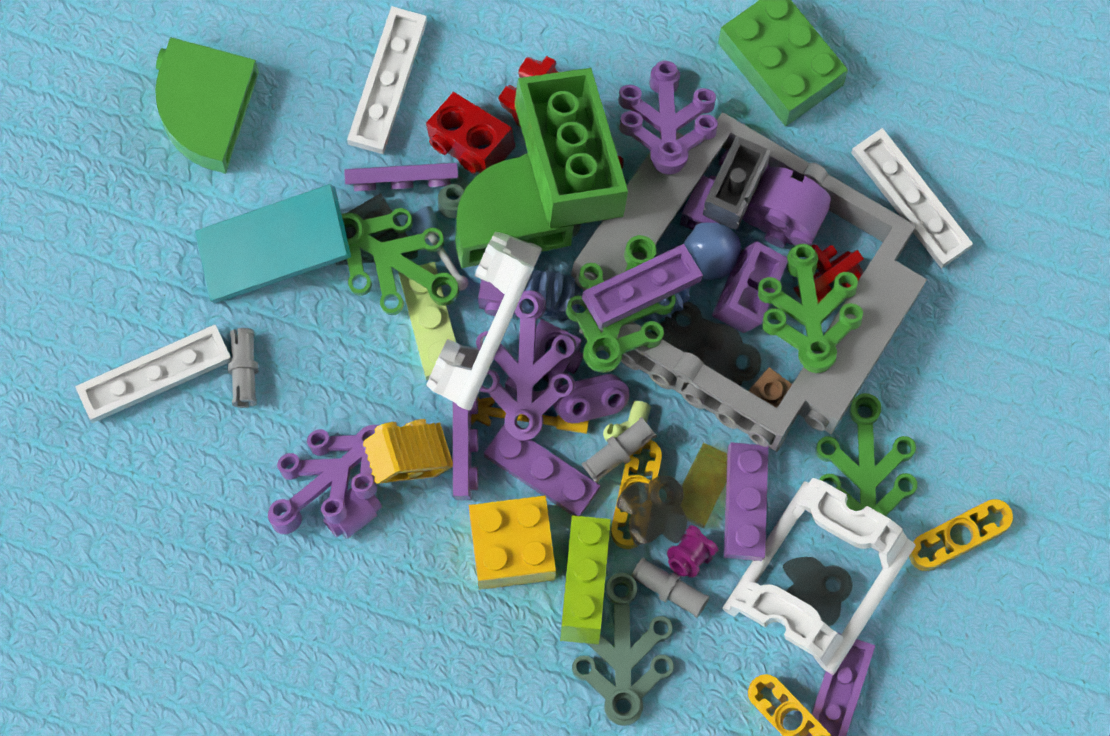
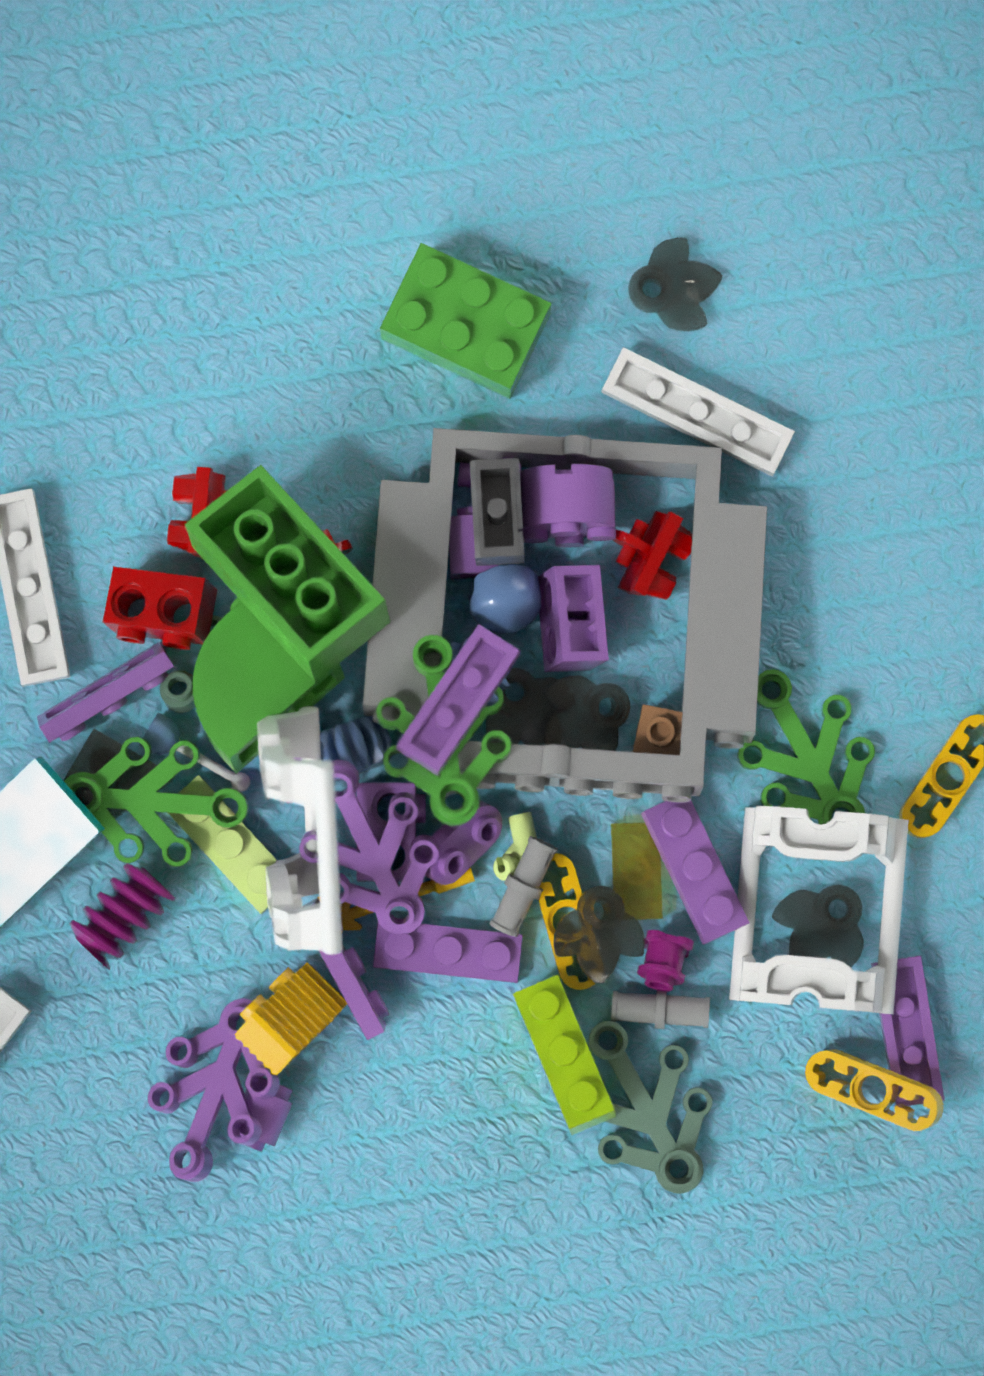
camera: 25 degrees left, 10 degrees up
(243, 367) = (49, 1013): light grey pin -> none
(330, 324) = (120, 913): none -> magenta piece
(512, 542) = (459, 1055): yellow brick -> none
(667, 153) = (376, 473): medium lavender plant -> none
(810, 312) = (659, 620): bright green plant -> none
(945, 108) = (681, 286): none -> clear smoke plate

